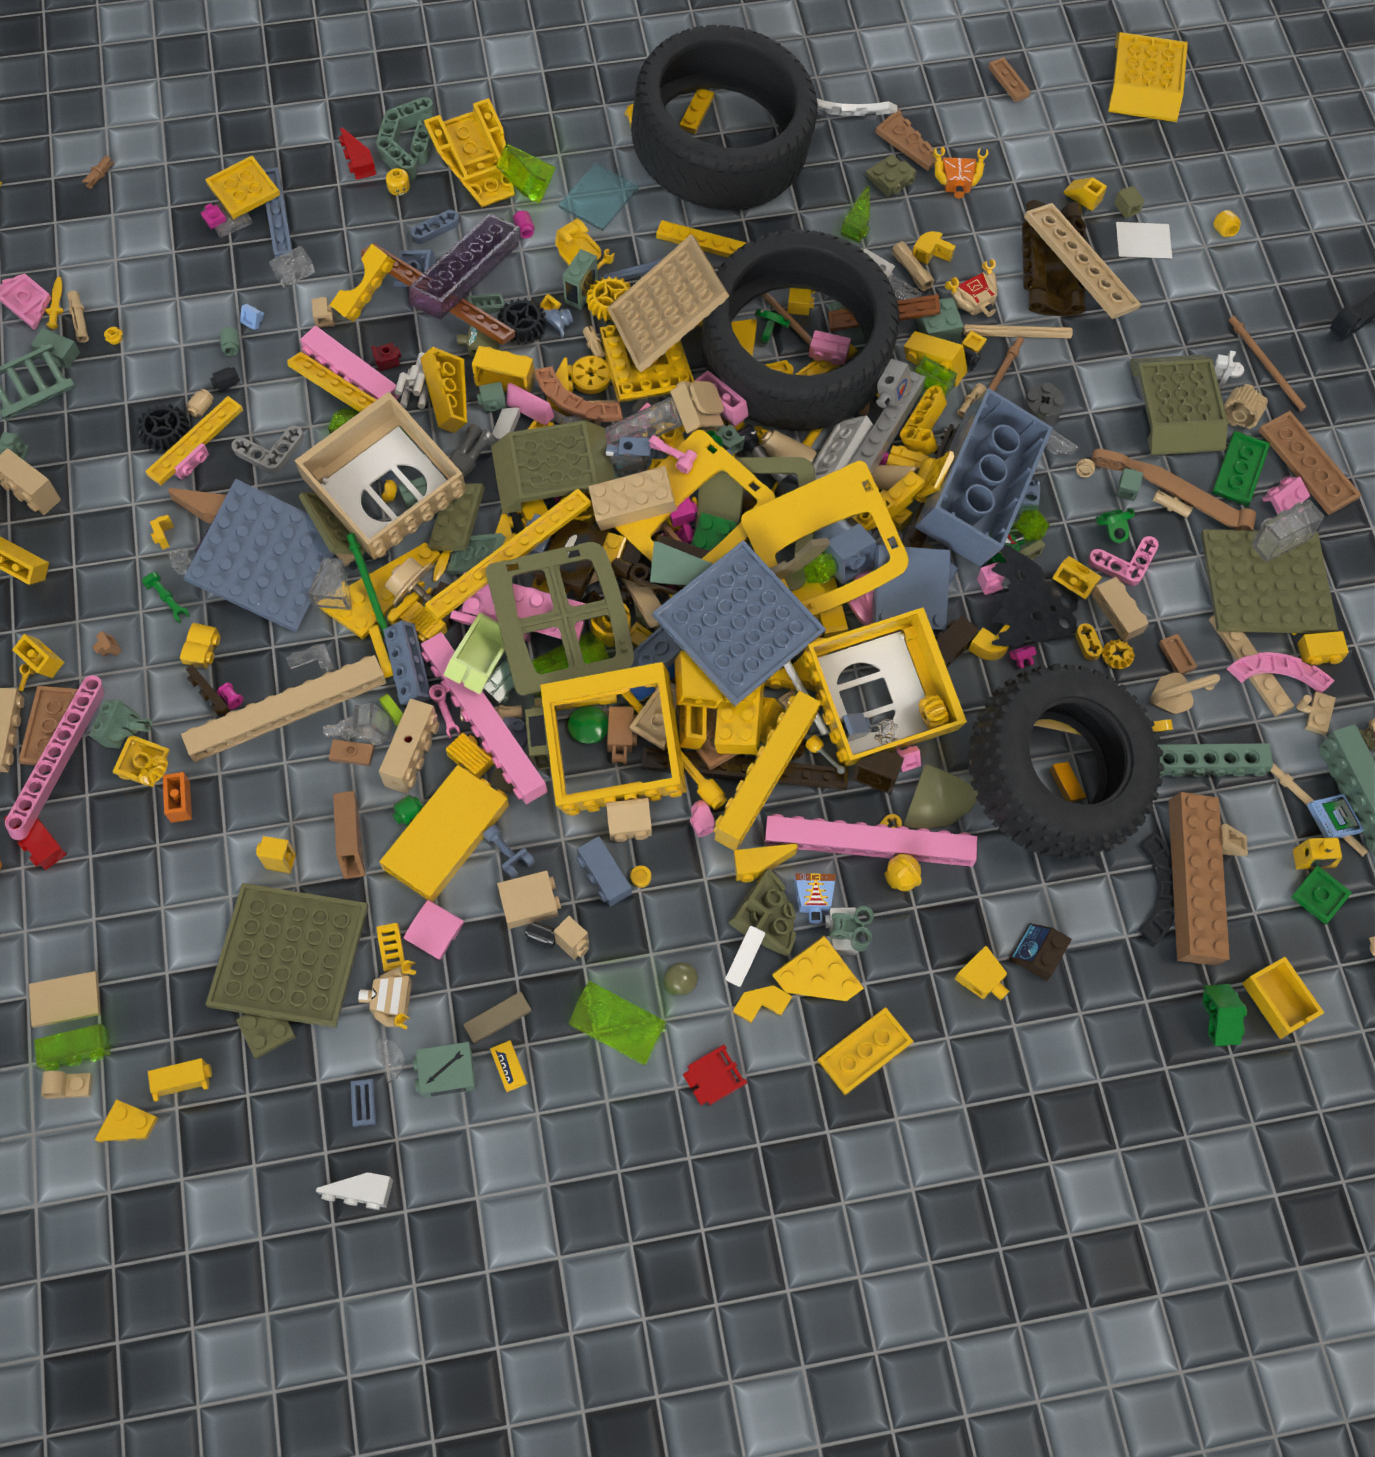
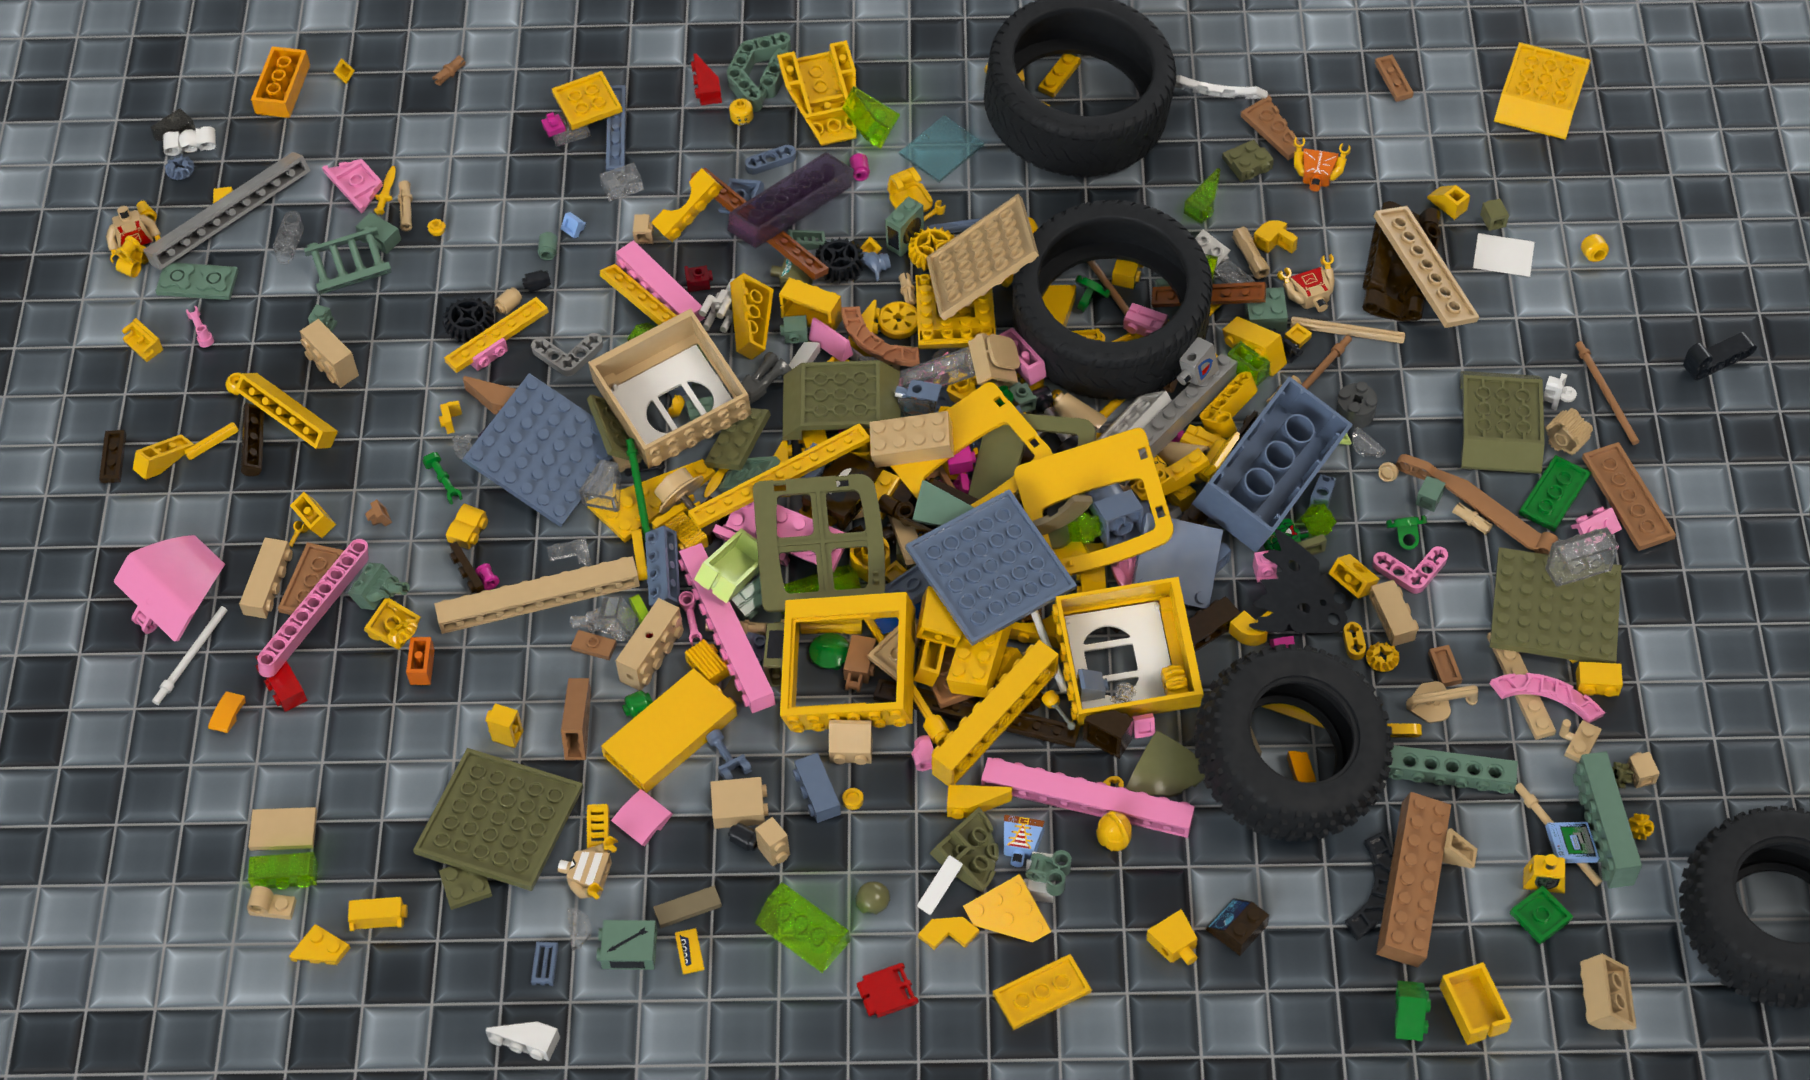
camera: 15 degrees right, 10 degrees down
(685, 460) = (970, 409): bright pink brick -> none
(708, 242) = (1032, 200): yellow plate -> none
(712, 531) = (985, 481): green plate -> none

